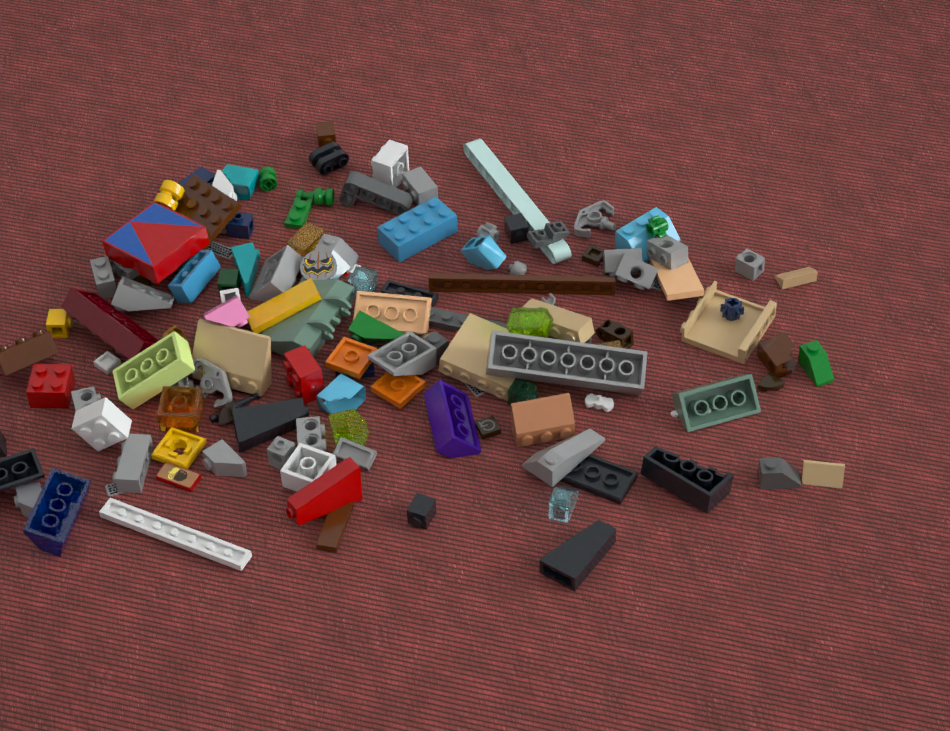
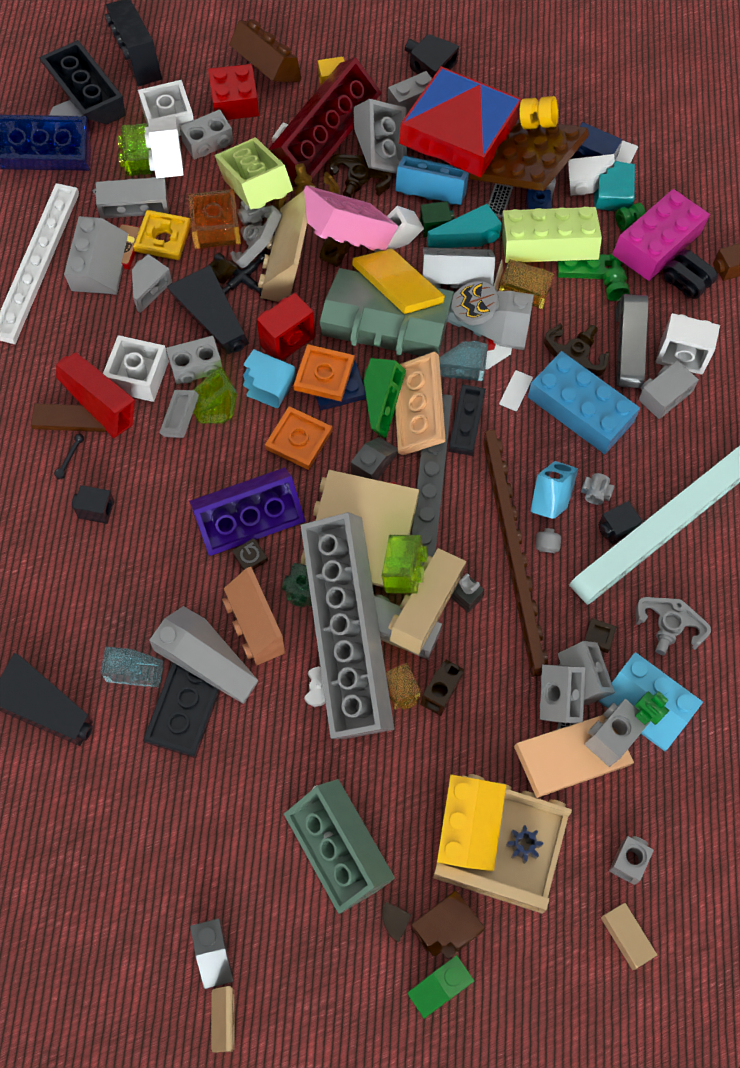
camera: 75 degrees right, 20 degrees up
(53, 428) = (166, 101): none -> white brick
(68, 262) = (431, 54): none -> black torso
(83, 456) = (134, 150): none -> clear neon green brick
(163, 319) = (358, 173): none -> dark brown piece
(185, 493) = (96, 256): none -> light grey slope
(272, 218) = (551, 234): none -> yellowish green brick
(279, 452) = (164, 332): light grey brick -> none
(293, 163) = (660, 234): none -> dark pink brick
(369, 228) = (577, 348): none -> dark brown piece
(383, 536) = (59, 473): none -> black hinge
(392, 267) = (516, 390): none -> white sticker
(405, 356) = (330, 428): light grey slope -> none
(550, 234) = (604, 563): dark grey slope -> none
(686, 479) = (176, 828): black wedge -> none
(713, 330) = (471, 823): none -> yellow slope

